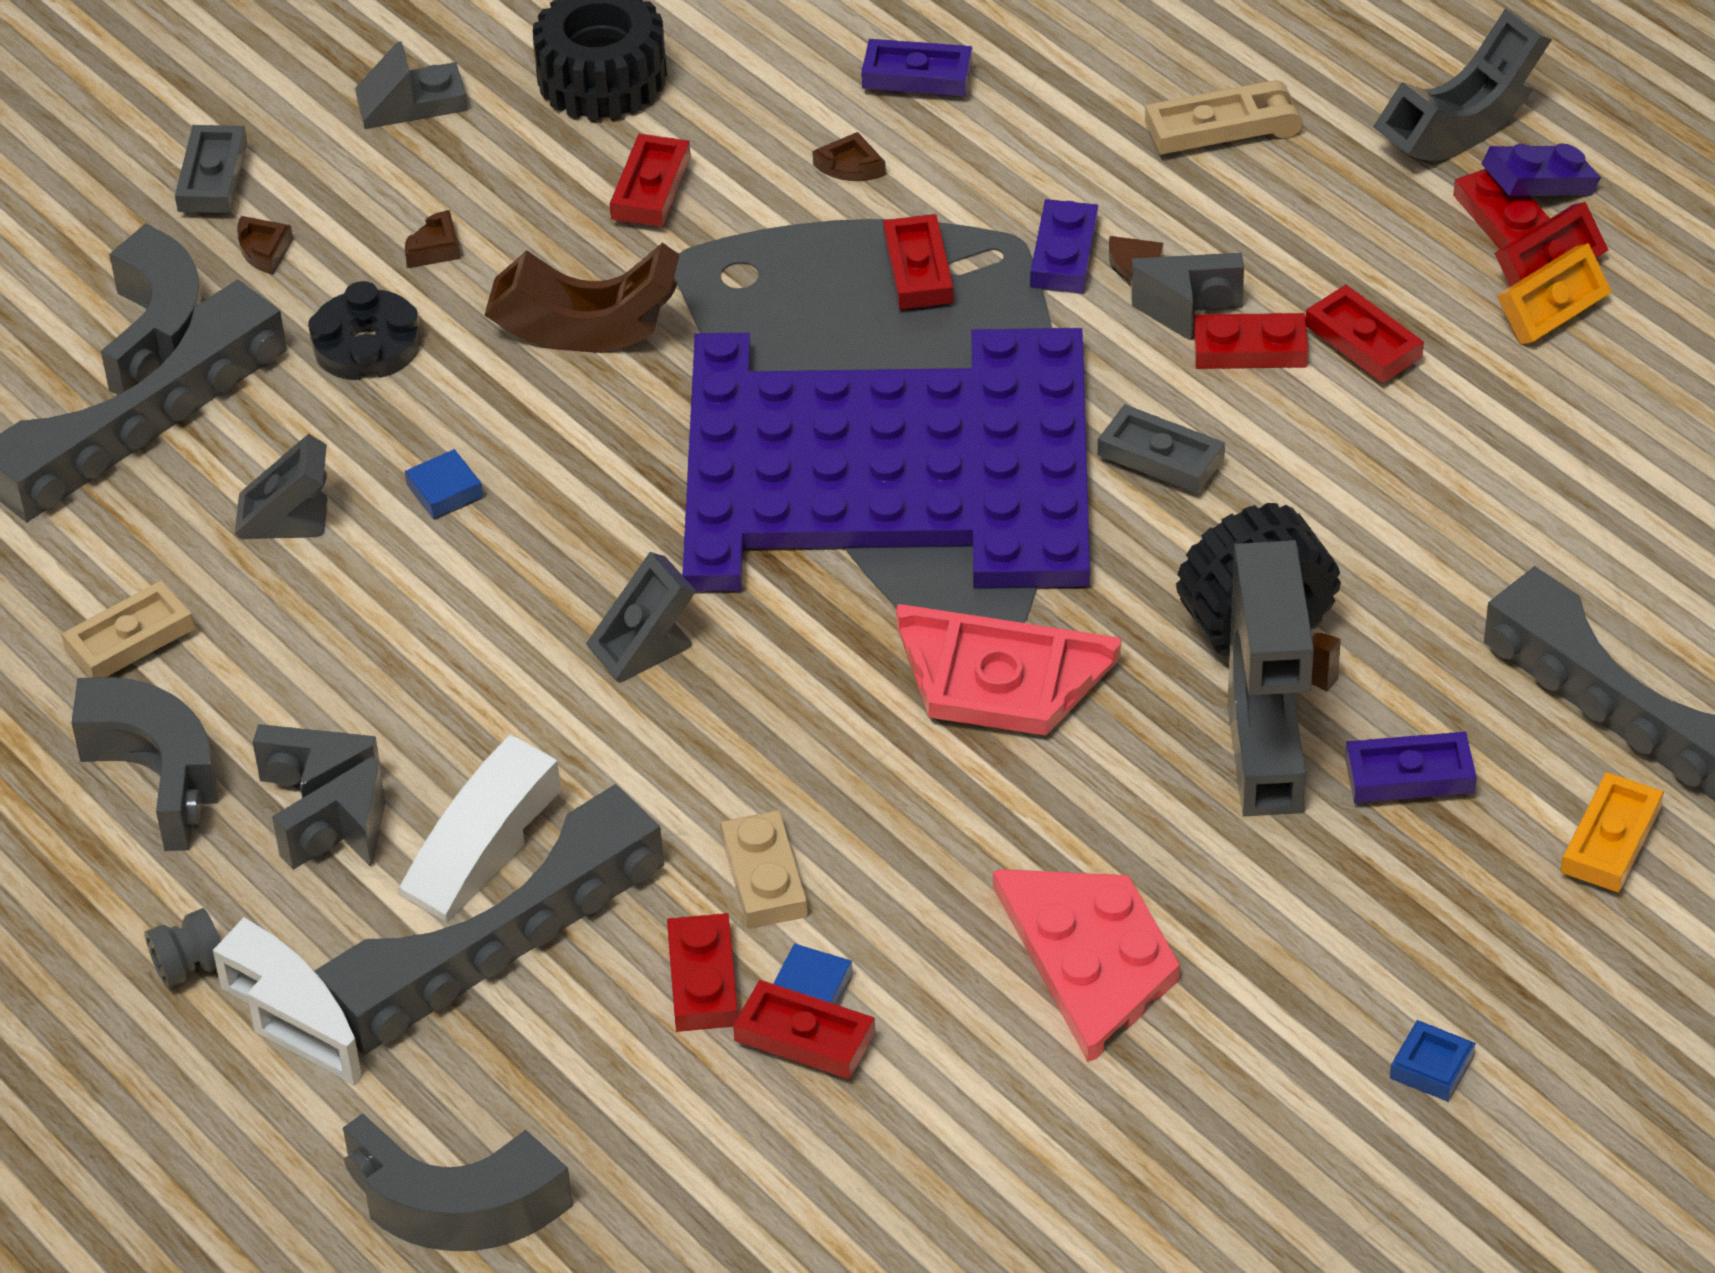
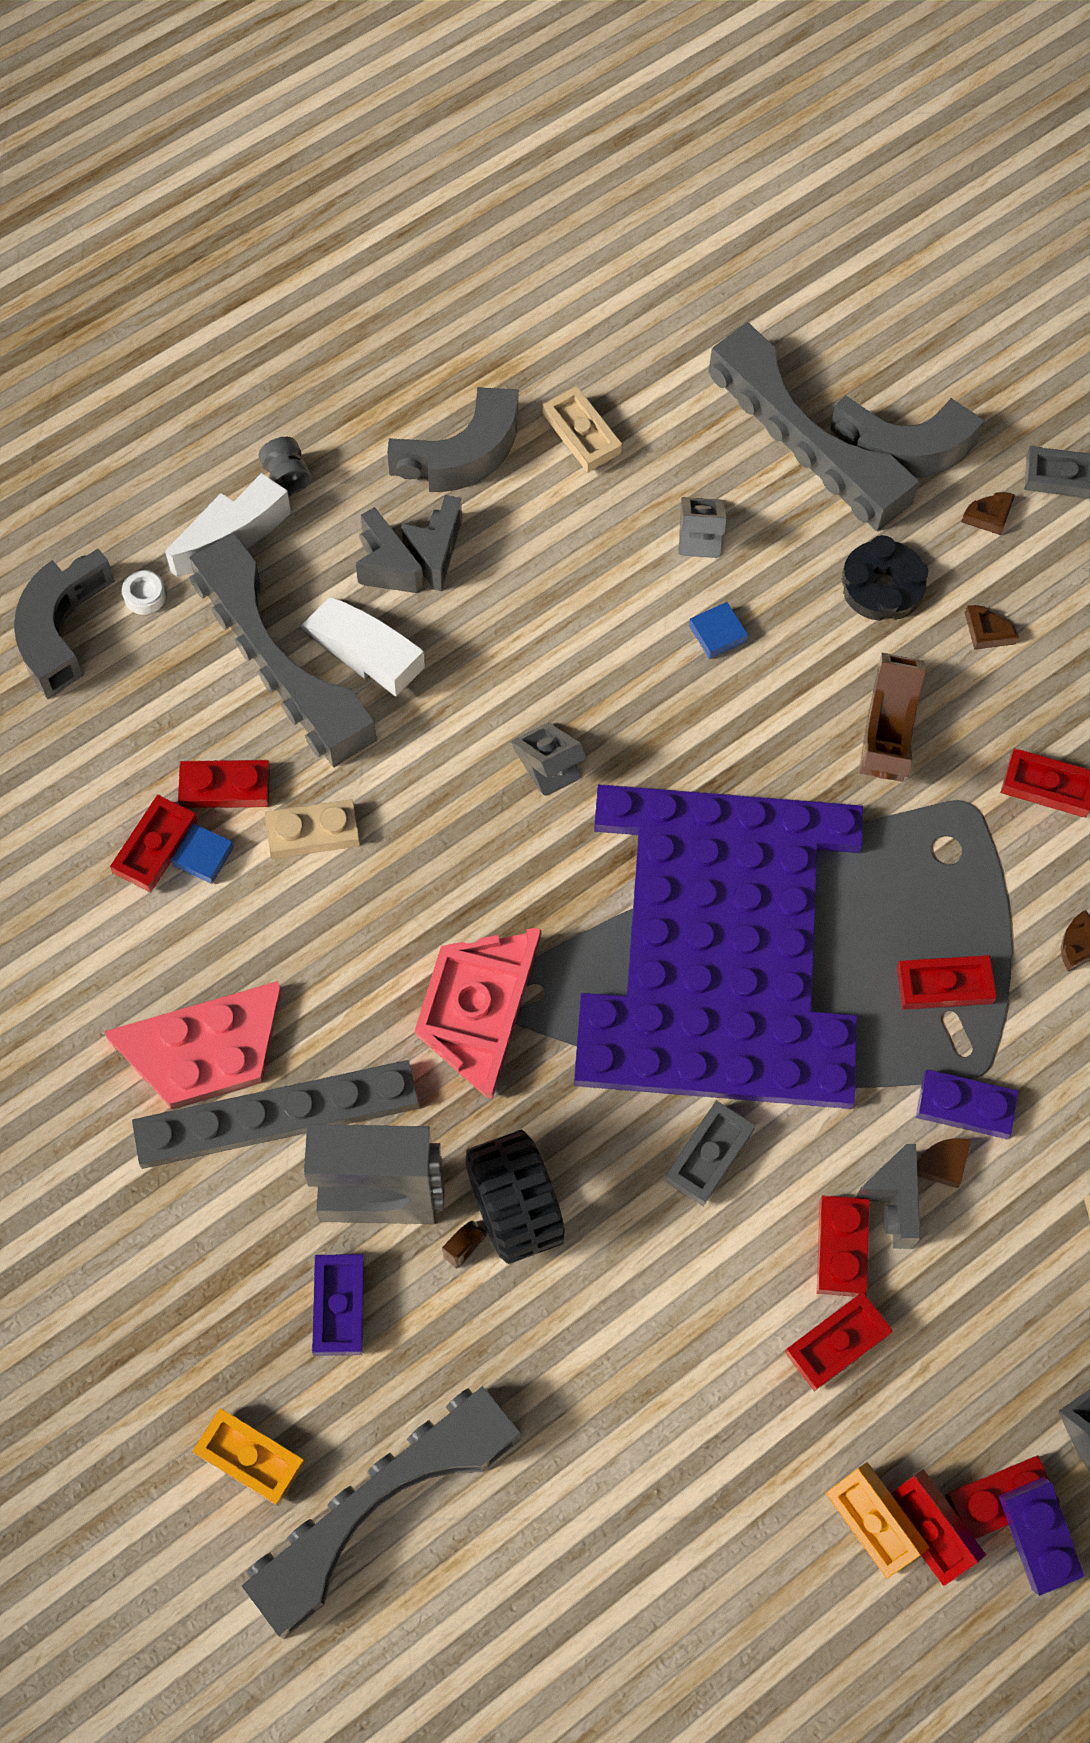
camera: 90 degrees right, 20 degrees up
(394, 1103) = (144, 592): none -> white tile
(1174, 867) = (274, 1114): none -> dark grey plate
(1432, 1060) = (57, 1280): blue tile -> none

